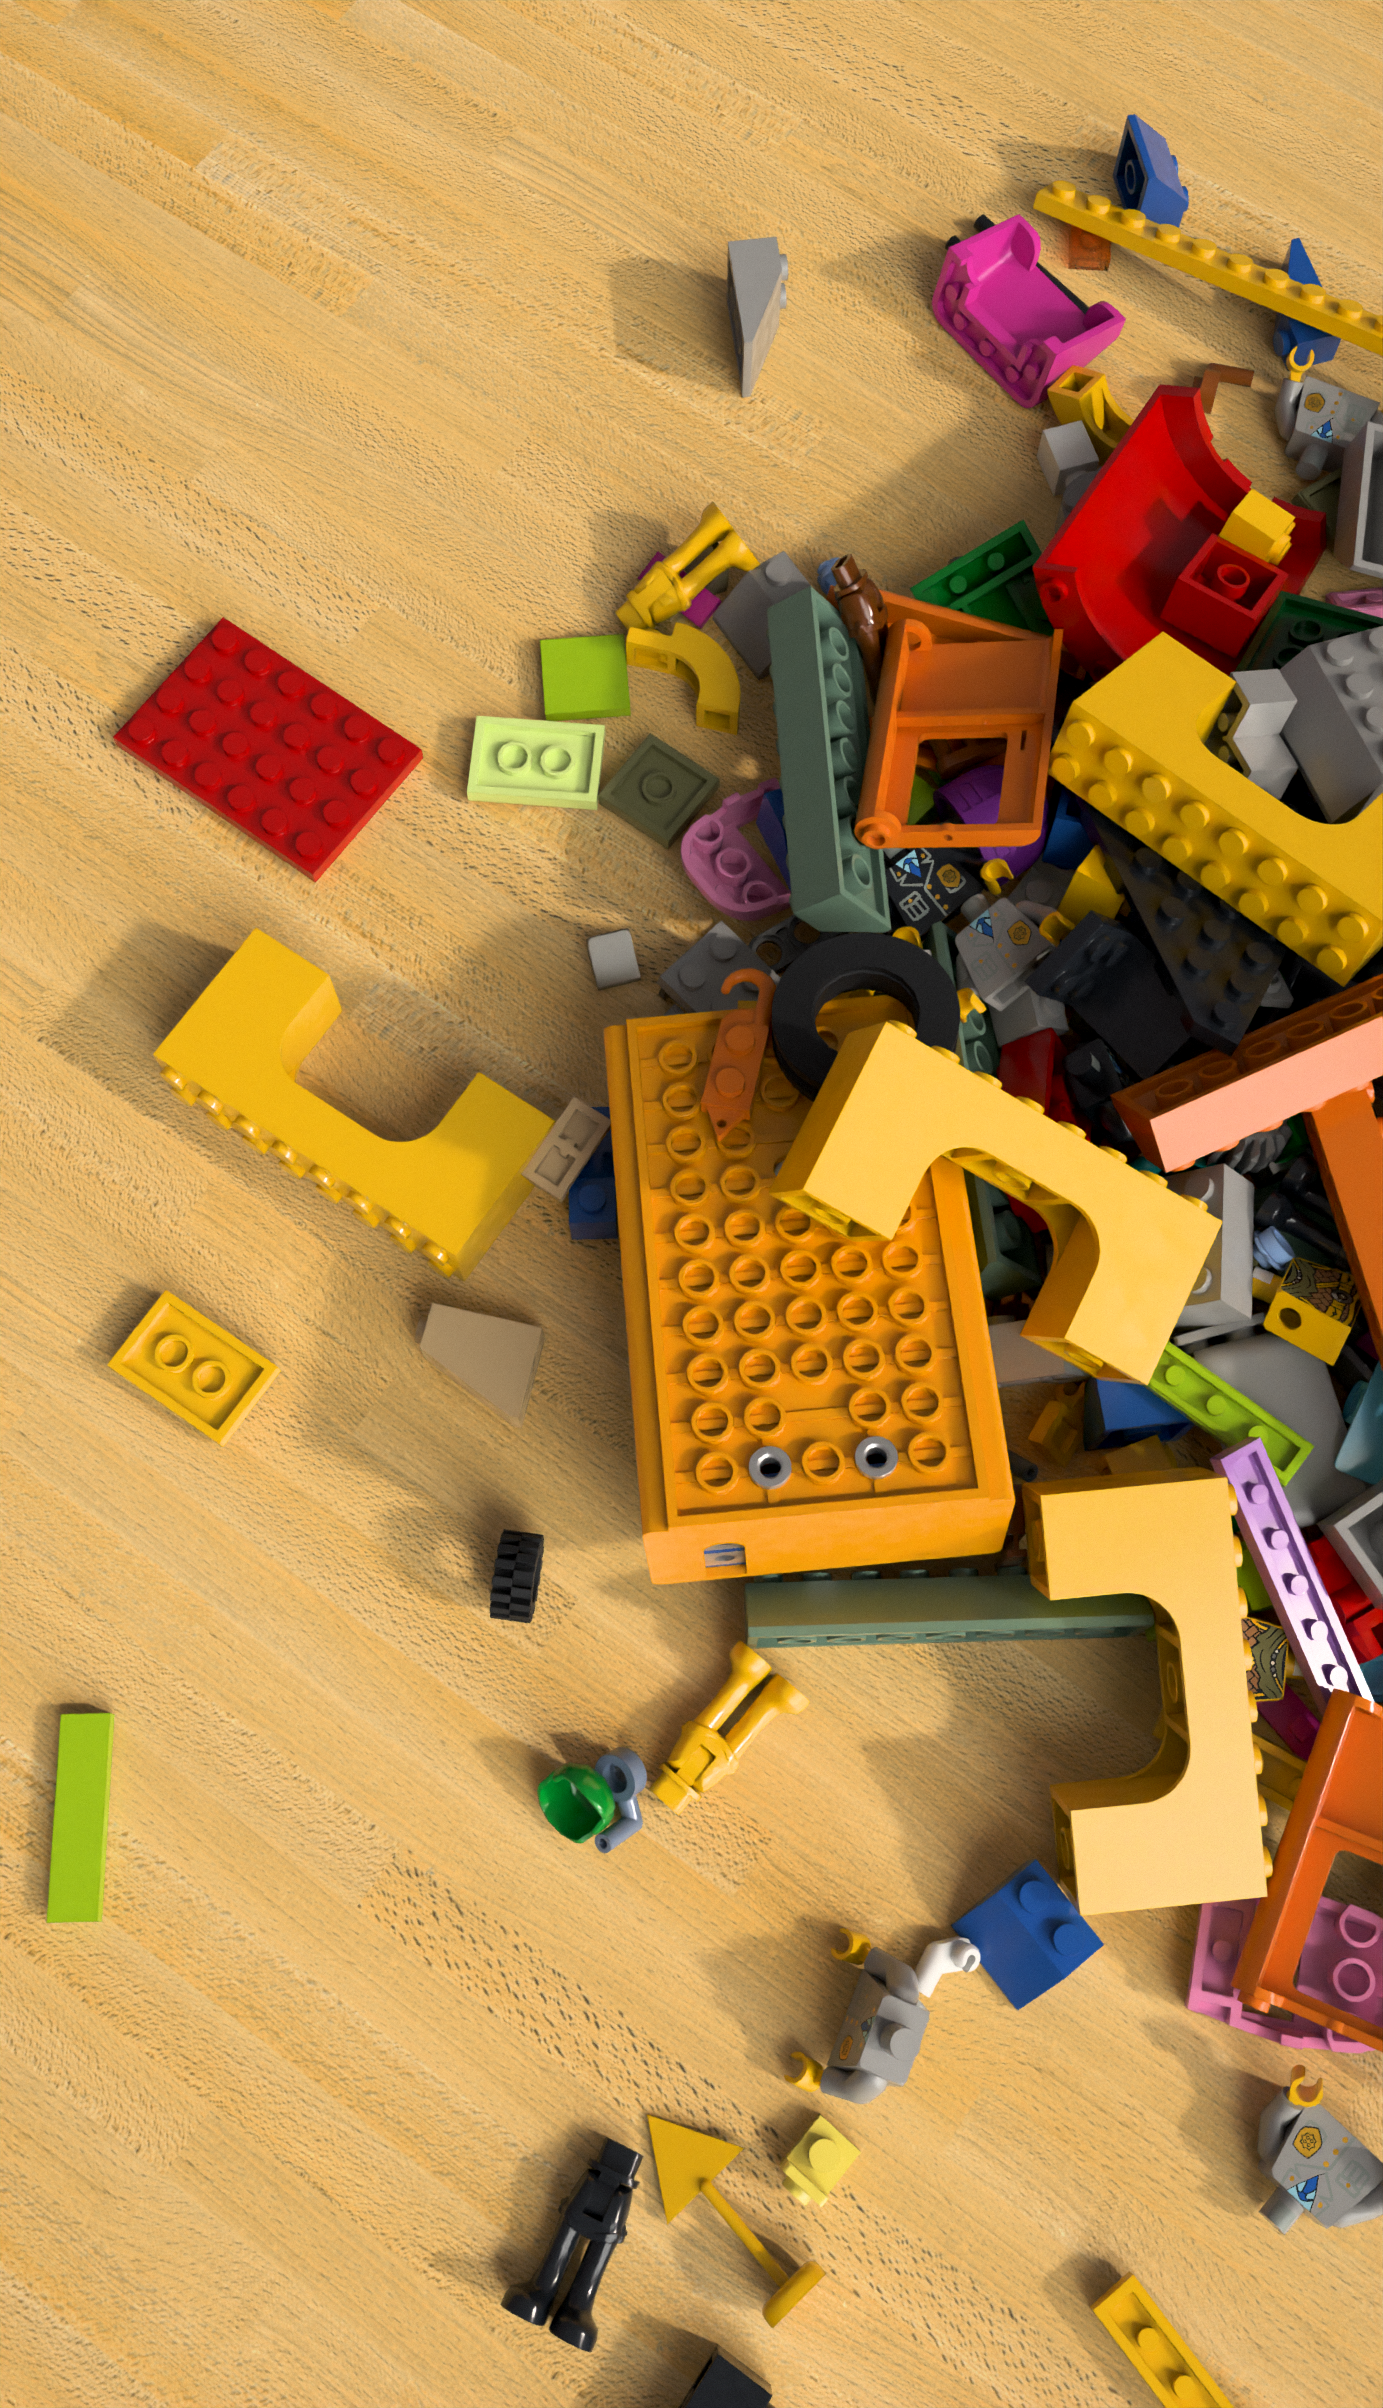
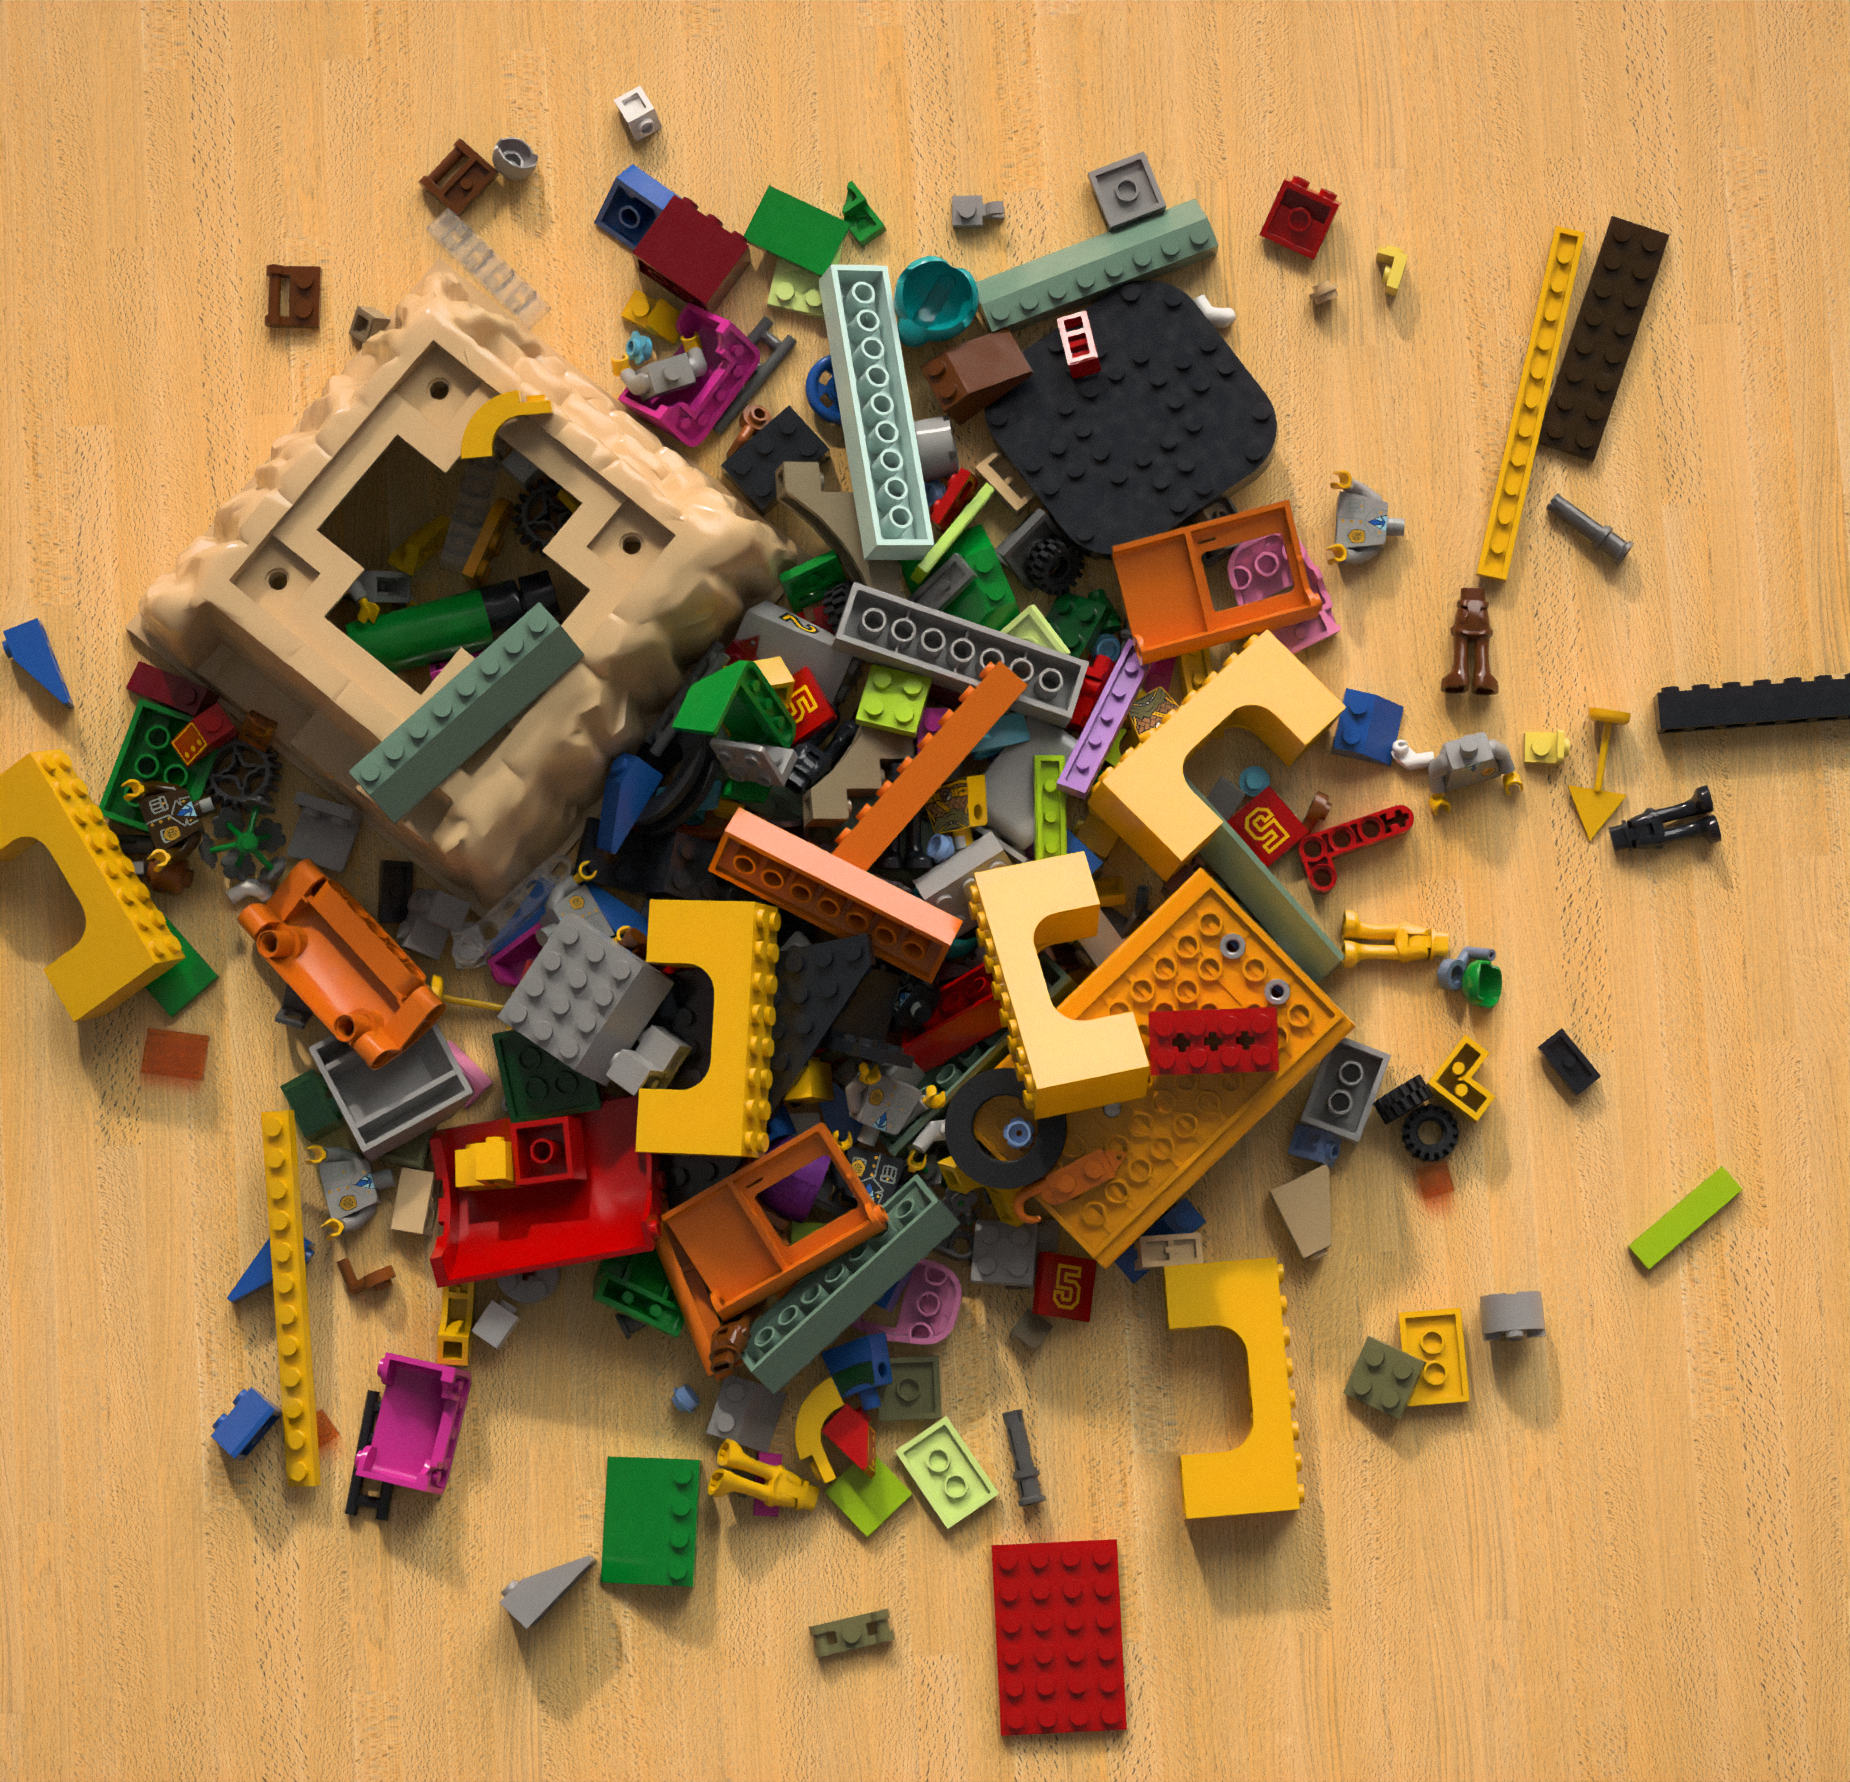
camera: 125 degrees left, 10 degrees up
(150, 1491) = (1512, 1316): none -> light grey brick
(219, 1290) = (1384, 1377): none -> olive plate
(390, 1832) = (1568, 1062): none -> black plate
(393, 1543) = (1435, 1180): none -> clear orange plate
(426, 1566) = (1443, 1119): none -> black tyre
(457, 560) = (851, 1633): none -> olive plate
(465, 838) = (1025, 1473): none -> dark grey pin
(480, 1657) = (1454, 1083): none -> yellow brick
(552, 1430) = (1314, 1145): none -> medium blue bracket
(585, 1514) = (1345, 1090): none -> light grey brick
(622, 996) = (1064, 1286): none -> red tile
(650, 692) = (854, 1436): none -> red slope
(720, 747) = (860, 1368): none -> blue torso
(731, 454) = (651, 1521): none -> green slope
(799, 1332) = (1228, 1025): none -> red brick
(840, 1026) = (1010, 1133): none -> light blue plate
(885, 1792) = (1357, 842): none -> red beam
(965, 1777) = (1318, 810): none -> dark orange plate
(992, 1690) = (1268, 826): none -> red tile
(1022, 1409) = (1119, 921): none -> dark grey bracket
(1062, 2199) = (1473, 626): none -> reddish brown piece
(1063, 1727) = (1254, 780): none -> medium azure plate
(1068, 1671) = (1226, 797): none -> light grey slope
(1266, 466) = (416, 1202): none -> tan hinge

